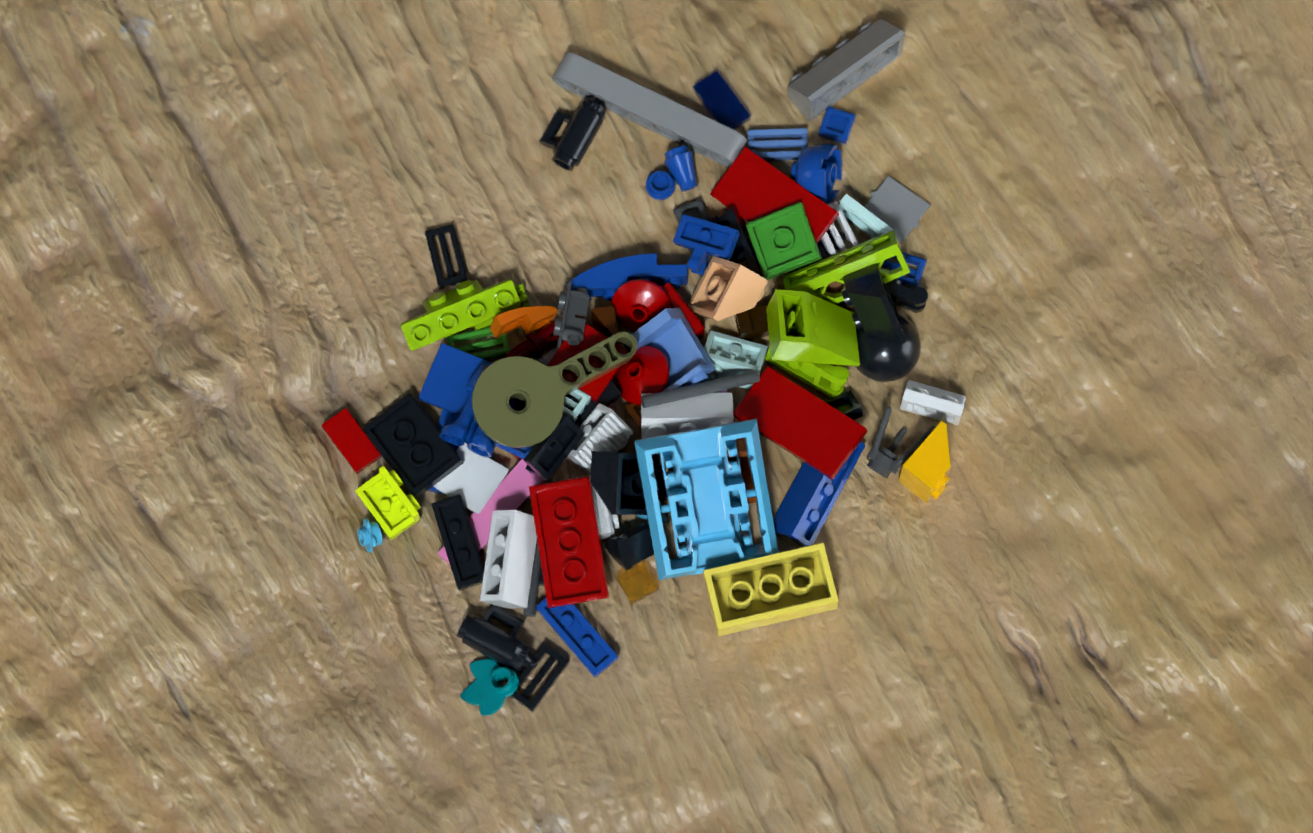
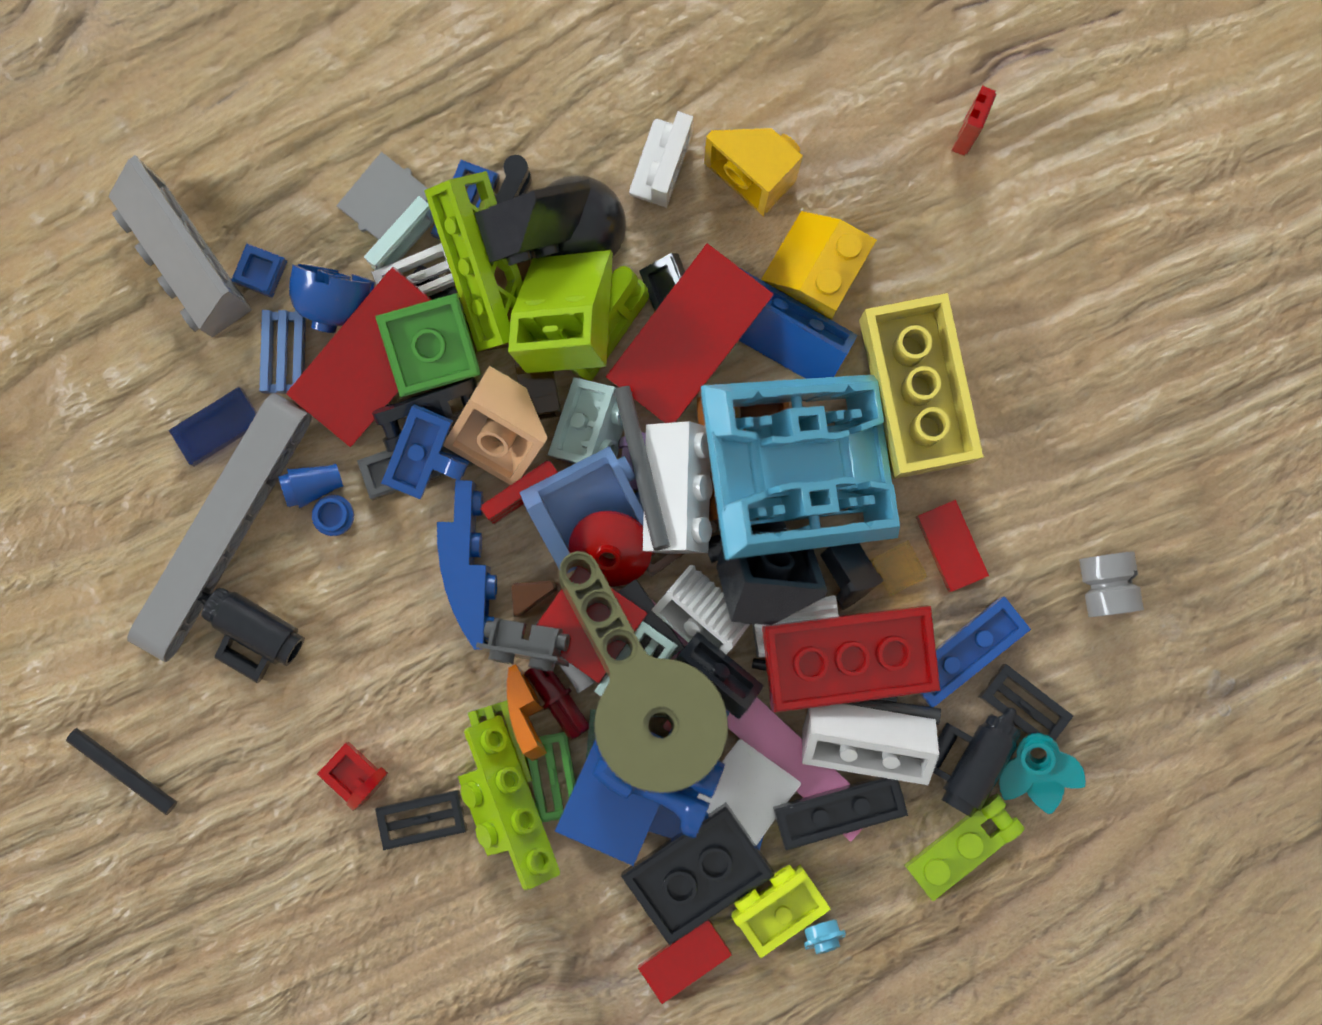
camera: 85 degrees left, 10 degrees up
(434, 634) = (963, 848): none -> lime plate
(475, 54) = (121, 771): none -> black bar
(475, 208) = (352, 776): none -> red tile
(629, 733) = (1111, 584): none -> light grey wheel
(639, 295) = (509, 547): red dish -> none
(654, 622) = (952, 546): none -> red tile
(861, 518) = (819, 261): none -> yellow slope
(884, 461) = (743, 229): dark grey plant -> none
(972, 619) = (974, 120): none -> red tile

